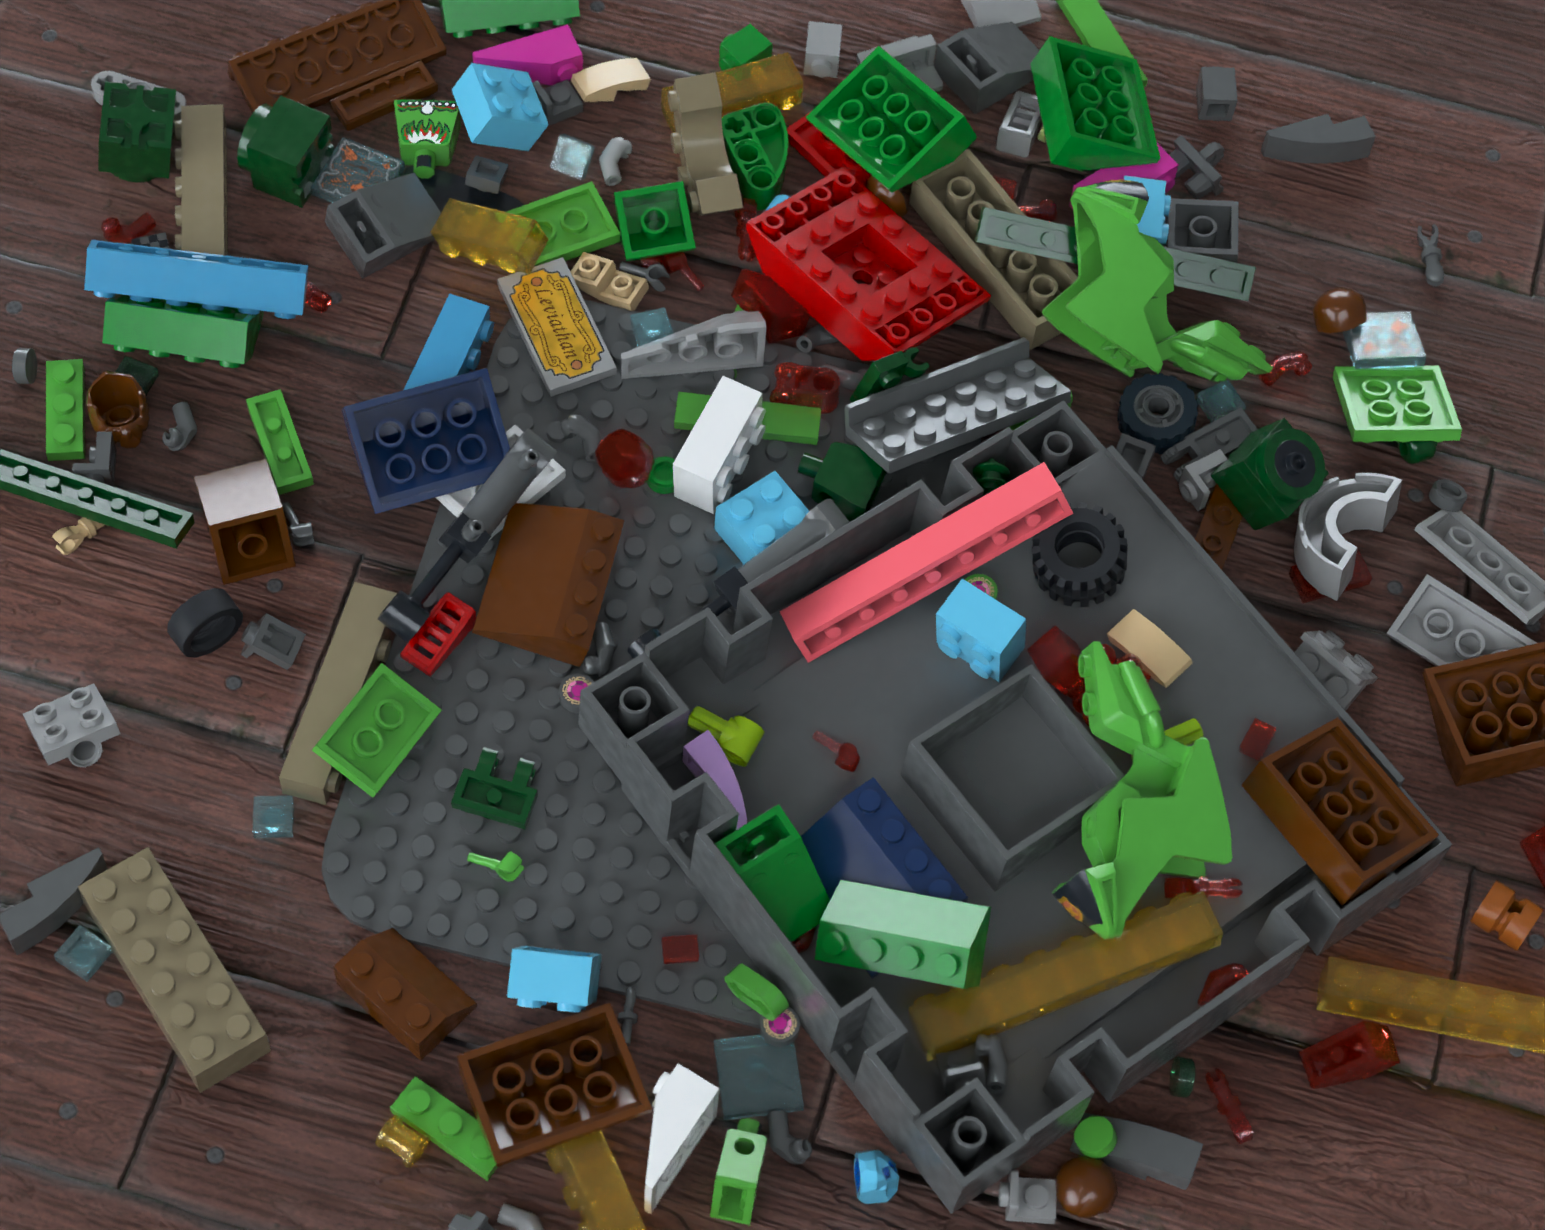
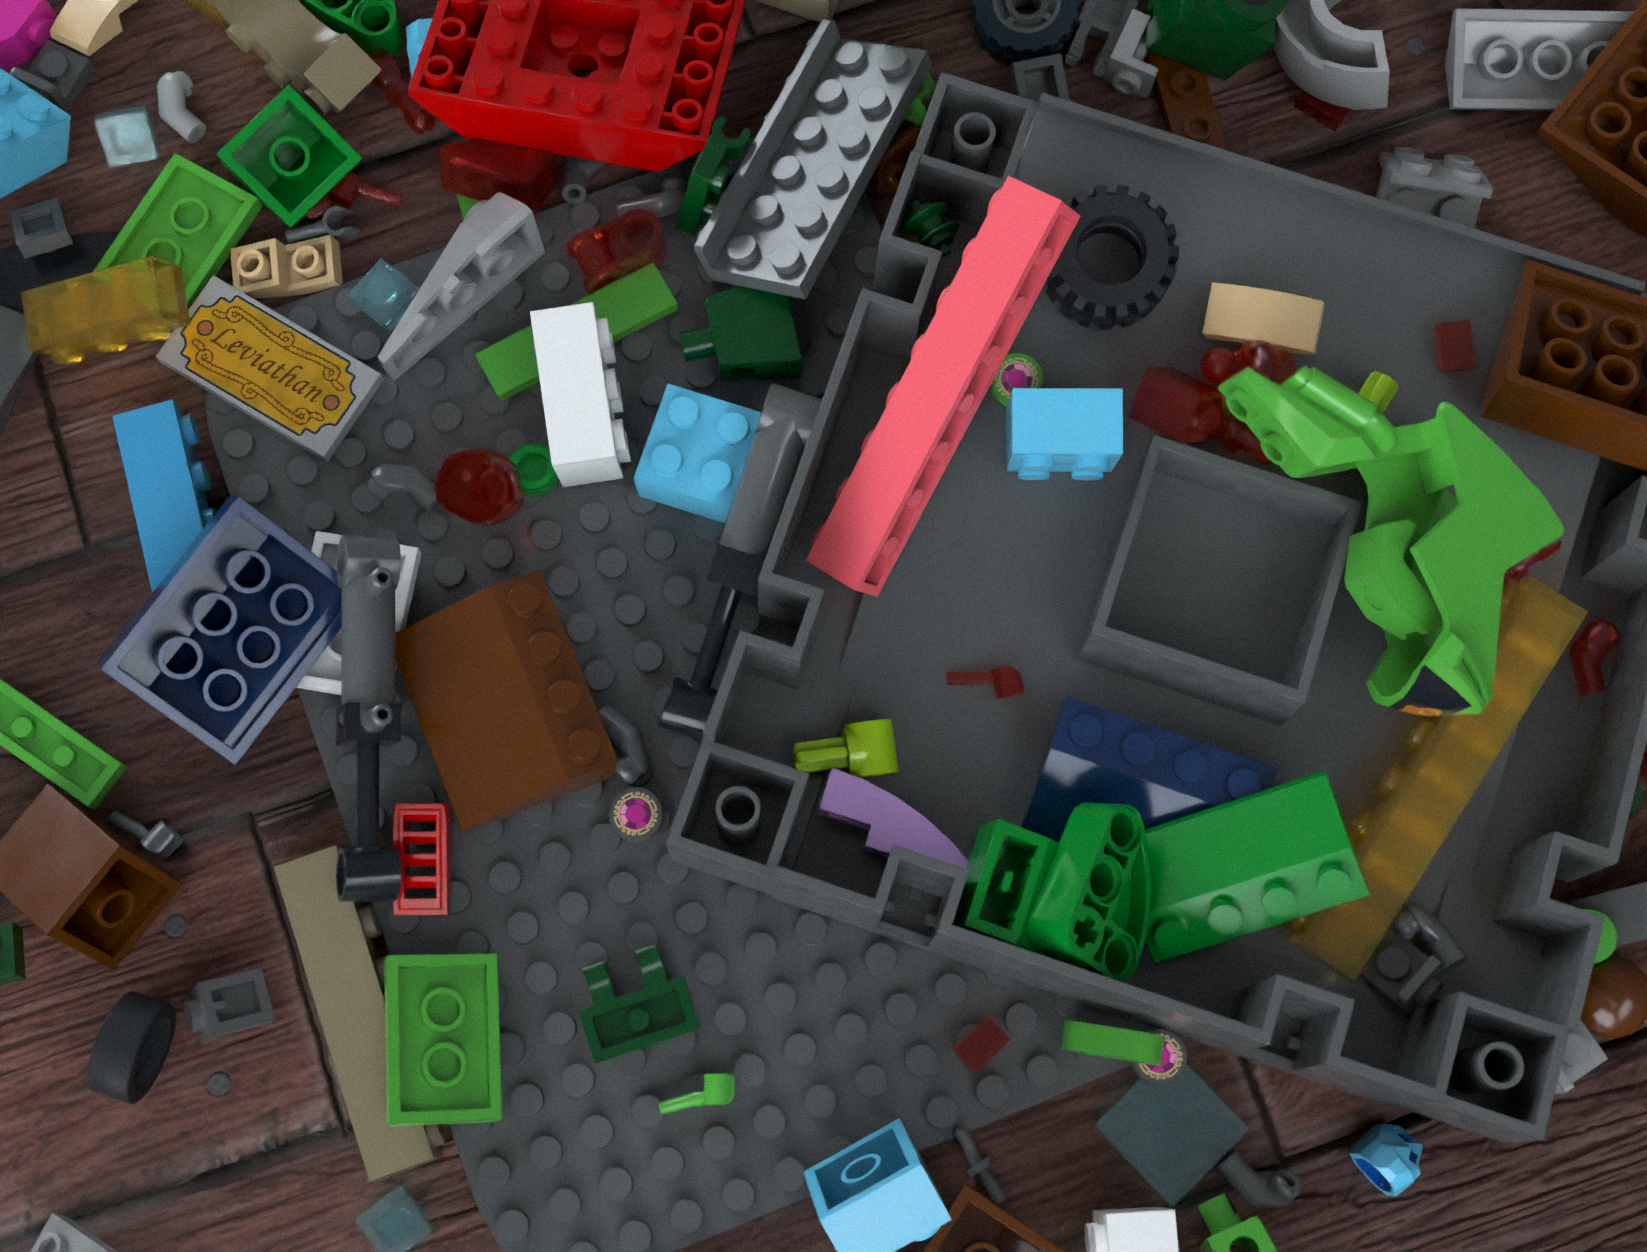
camera: 30 degrees left, 15 degrees up
(810, 899) = (1096, 892): none -> green beam

